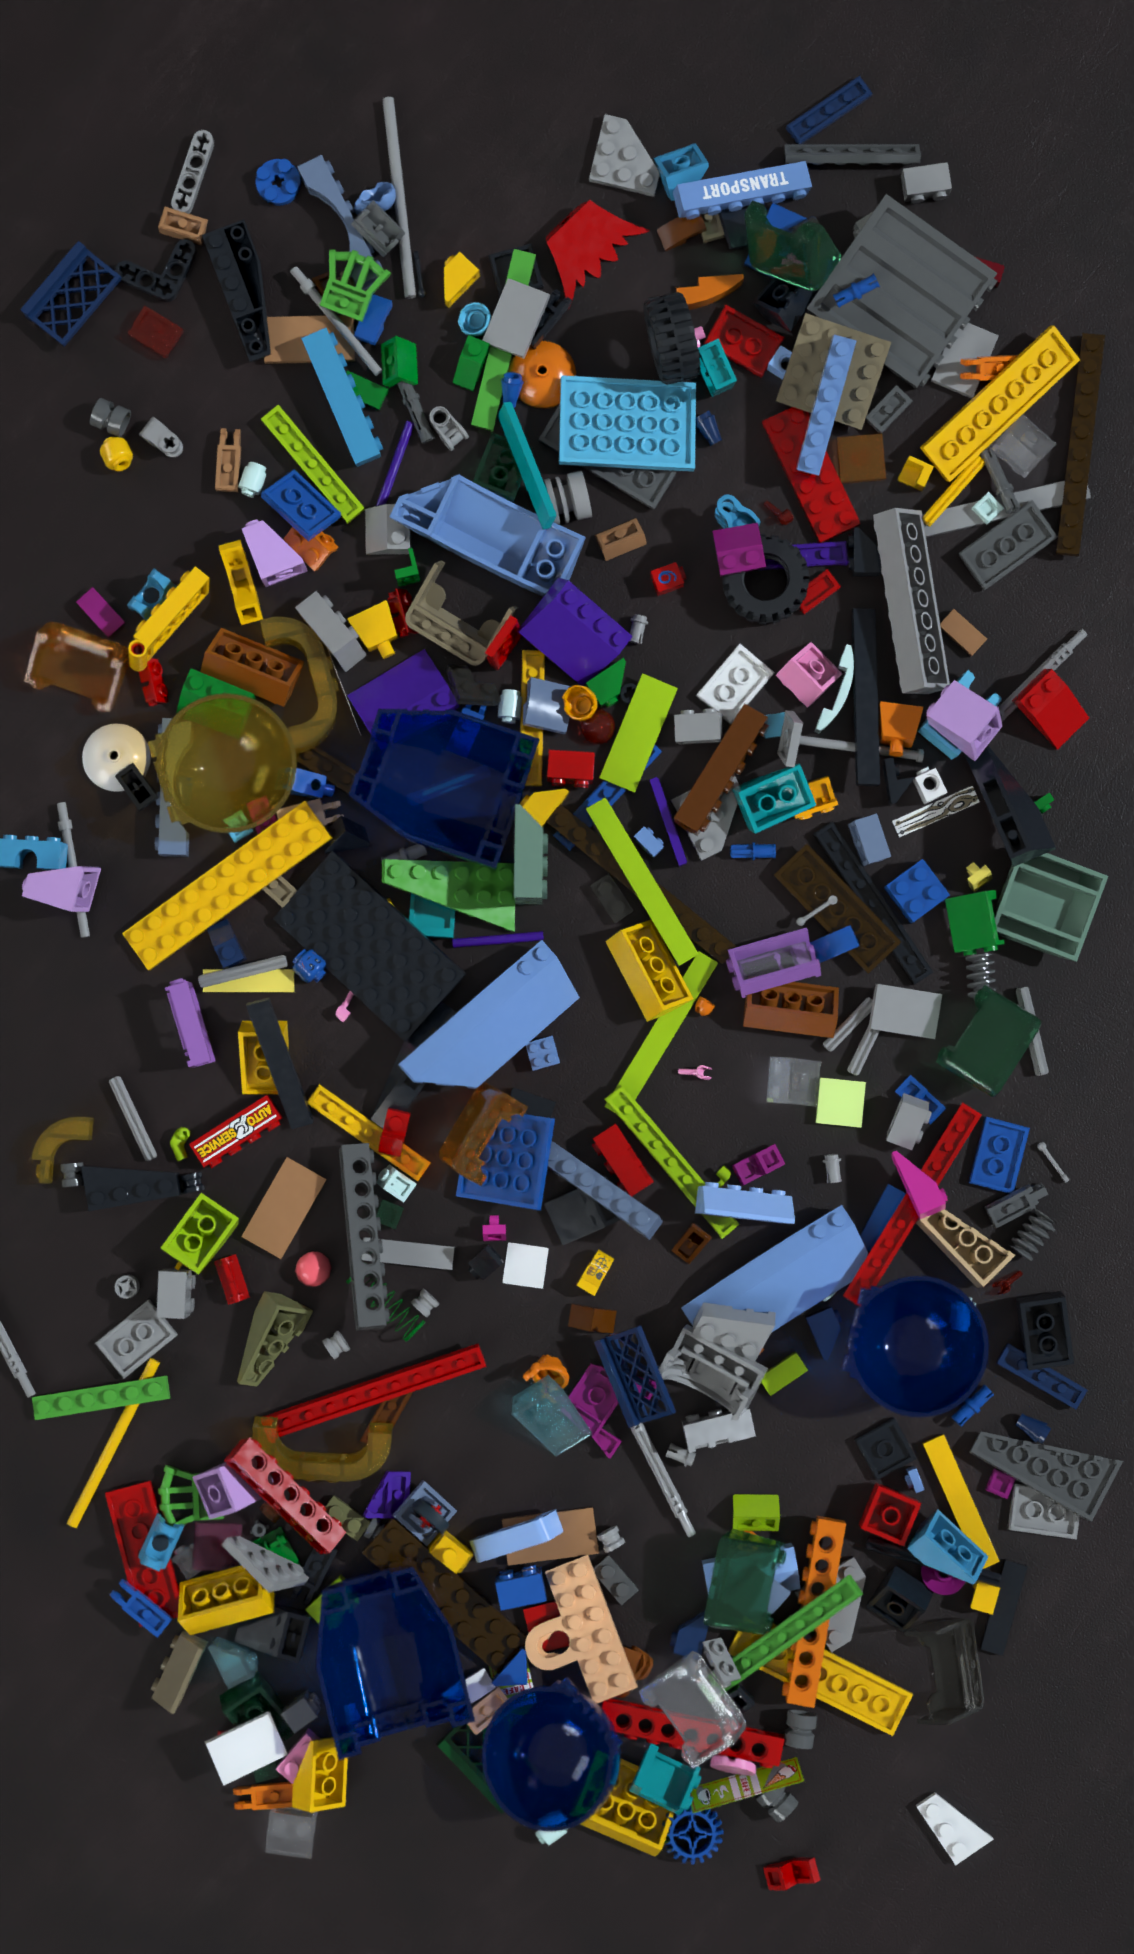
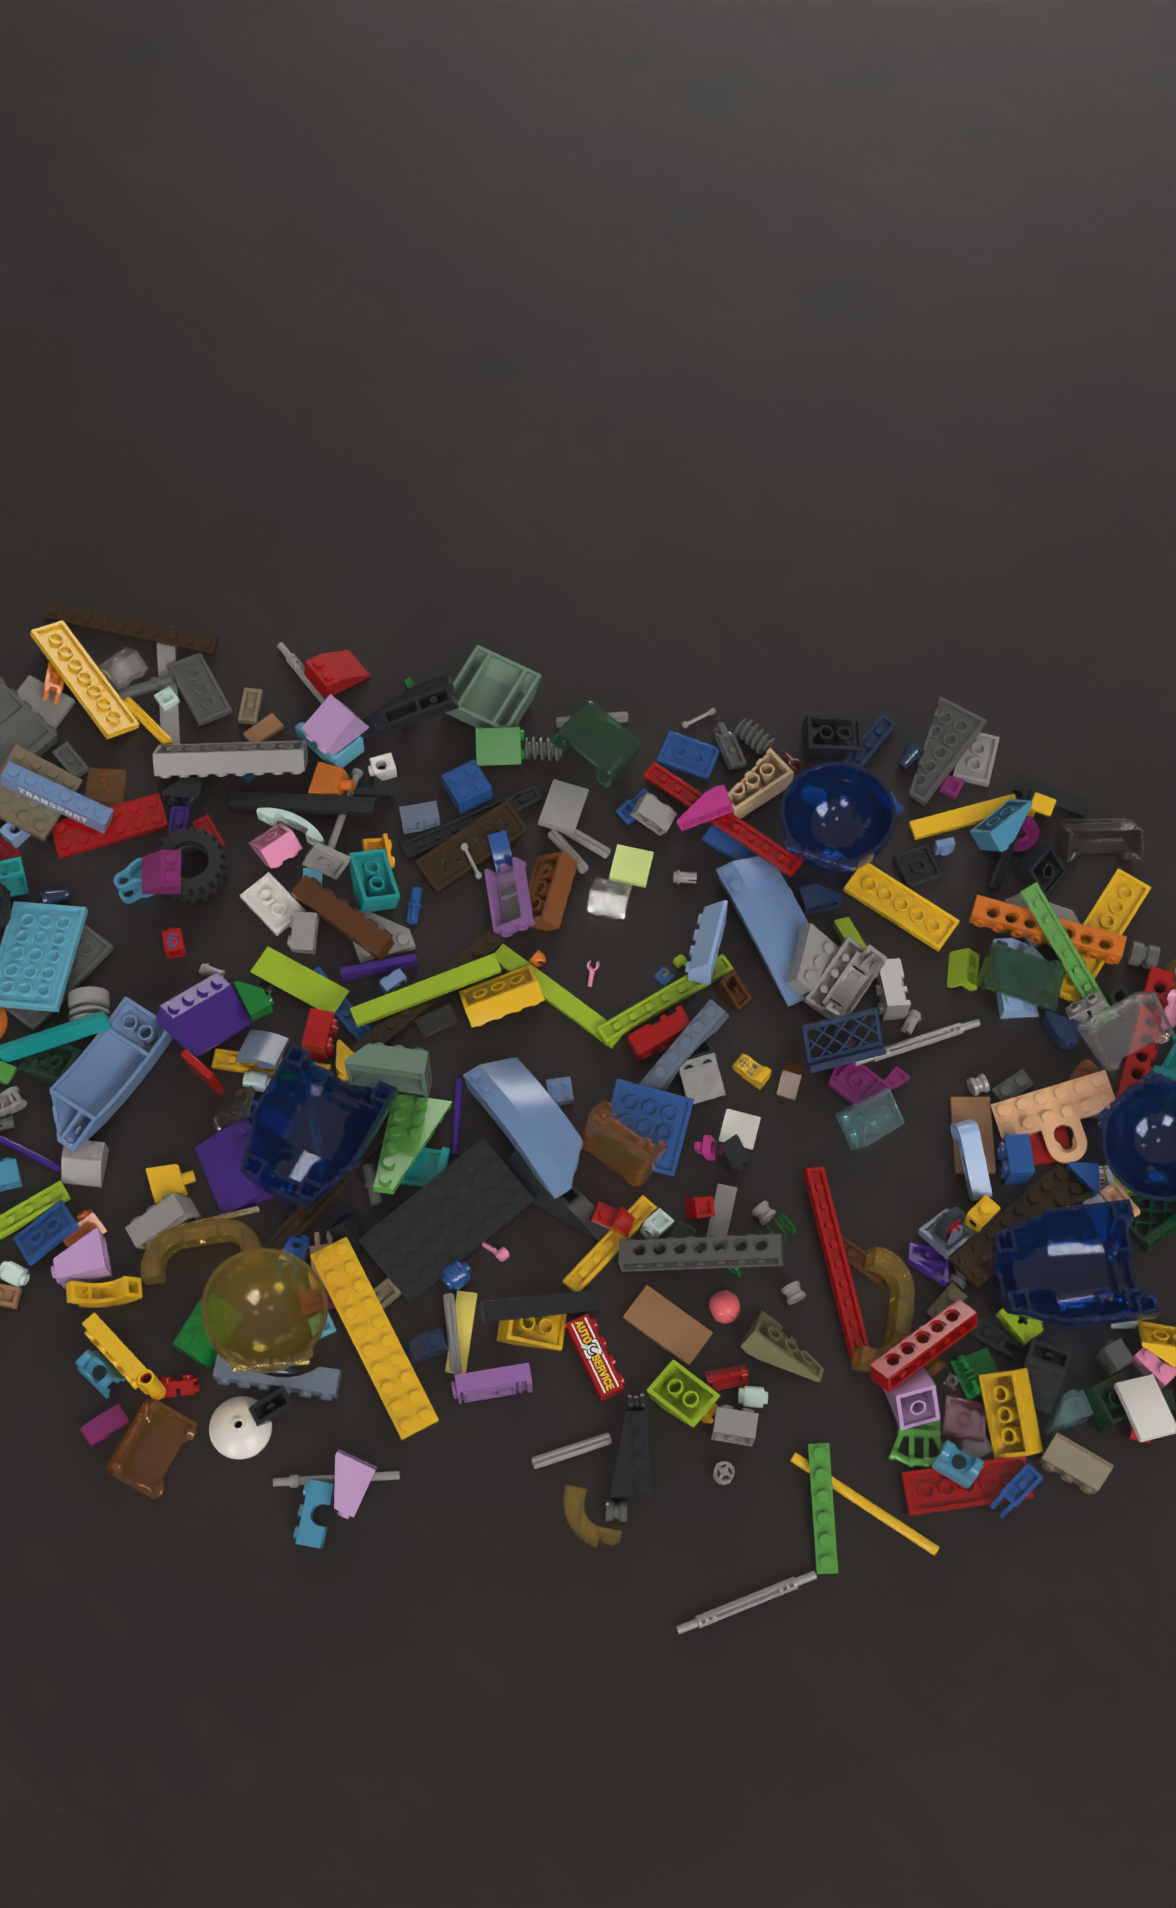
camera: 80 degrees left, 20 degrees down
(136, 1339) = (772, 1471): light grey tile -> none
(178, 1141) = (598, 1412): lime arm -> none
(213, 1310) = (752, 1396): none -> light aqua brick
(252, 666) = (179, 1294): dark orange slope -> none
(265, 1566) = (983, 1368): light grey plate -> none
(400, 602) = (150, 1160): red hinge -> none
(408, 575) = (122, 1142): green panel -> none
(422, 1229) = (699, 1207): none -> red panel
(445, 628) = (199, 1102): dark tan windscreen -> none
(548, 1366) = (828, 1118): orange hat -> none
(579, 702) = (265, 1020): light orange hair -> none
(599, 727) = (288, 1013): clear red hair -> none
(621, 539) = (132, 977): medium nougat slope -> none
(704, 1157) = (663, 976): none -> blue sticker
(758, 1164) = (675, 934): magenta slope -> none
(784, 517) = (141, 850): clear red hand -> none
(826, 1437) = (901, 906): none -> yellow plate
(889, 1514) = (971, 866): red brick -> none
(915, 473) = (127, 747): yellow panel -> none
(936, 811) = (404, 768): sticker -> none
(978, 876) = (461, 741): light yellow tile -> none
(992, 610) = (250, 706): none -> dark tan plate

